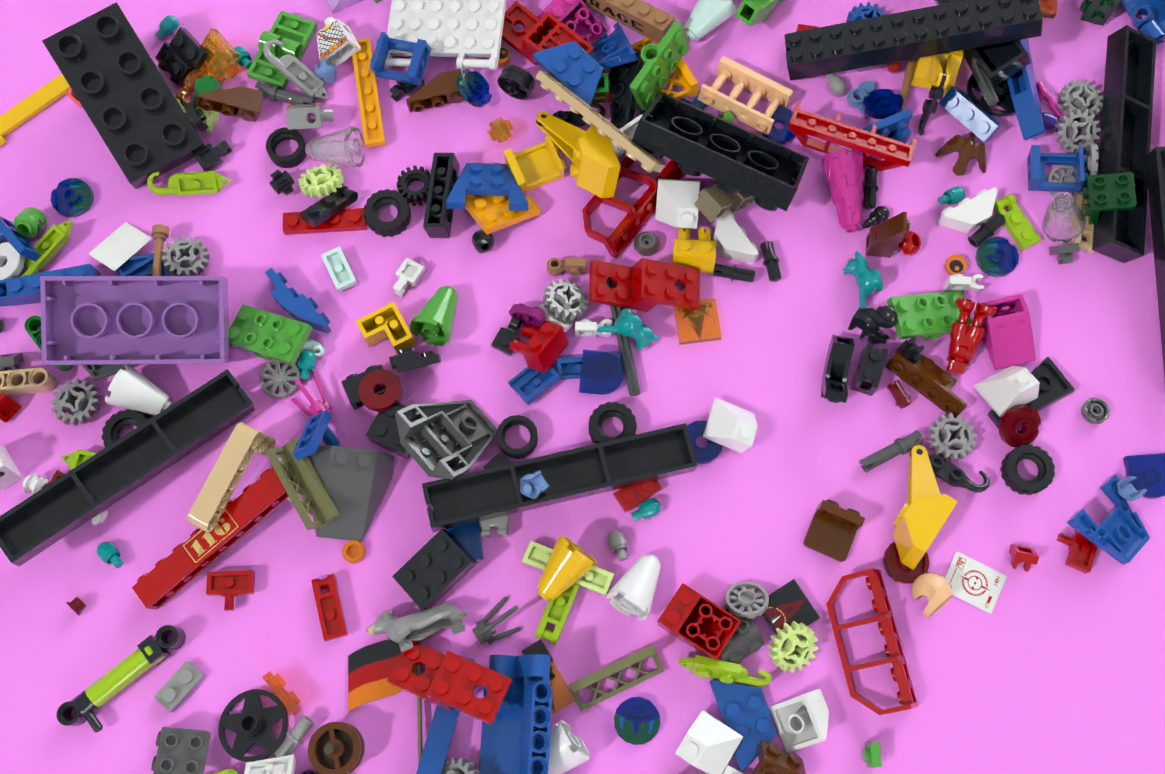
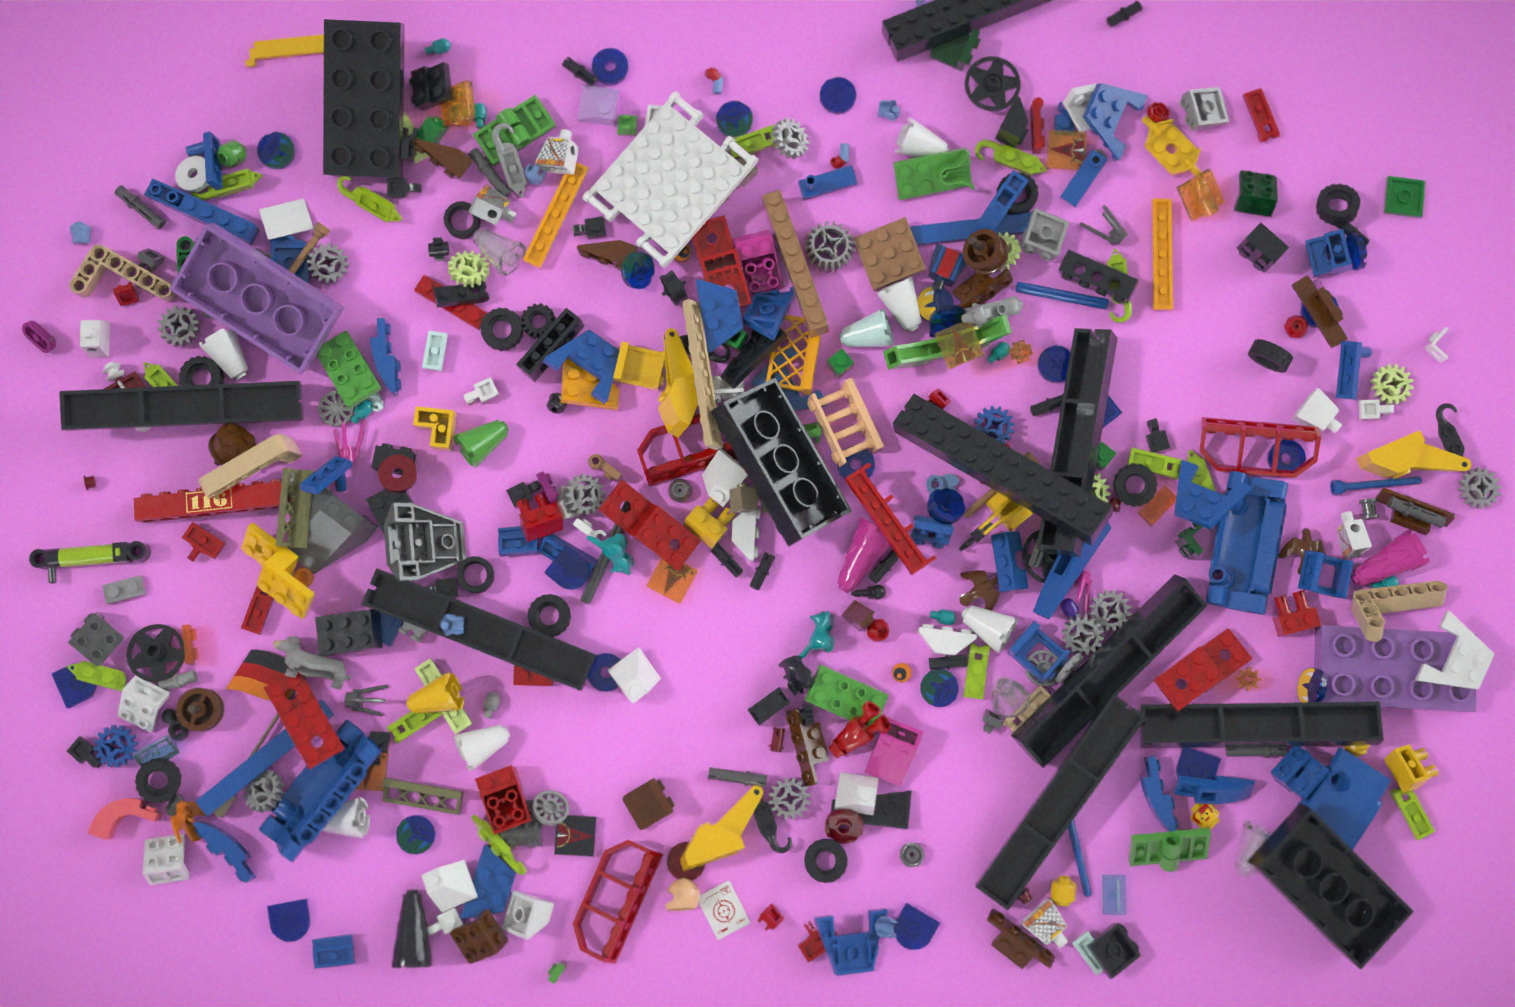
camera: 30 degrees right, 10 degrees up
(109, 554) = (134, 459): teal cylinder -> none
(189, 85) = (421, 115): clear orange tile -> none
(194, 470) = (229, 443): none -> reddish brown wheel
(326, 560) = (277, 571): none -> yellow bracket
(409, 359) = (435, 464): black plate -> none
(414, 75) = (605, 221): blue window -> none
(500, 129) = (634, 319): clear yellow gear -> none
(647, 509) = (529, 694): teal cylinder -> none
(658, 64) = (786, 356): bright green plate -> none
(703, 53) = (840, 363): none -> green brick
(793, 646) = (557, 862): yellowish green gear -> none
(836, 84) = (927, 462): light grey cylinder -> none
(836, 369) = (742, 690): black arch -> none
(959, 282) = (890, 688): white plate -> none
(1003, 173) = (990, 626): none -> white cone
(1108, 193) = (1050, 704): dark green bracket -> none

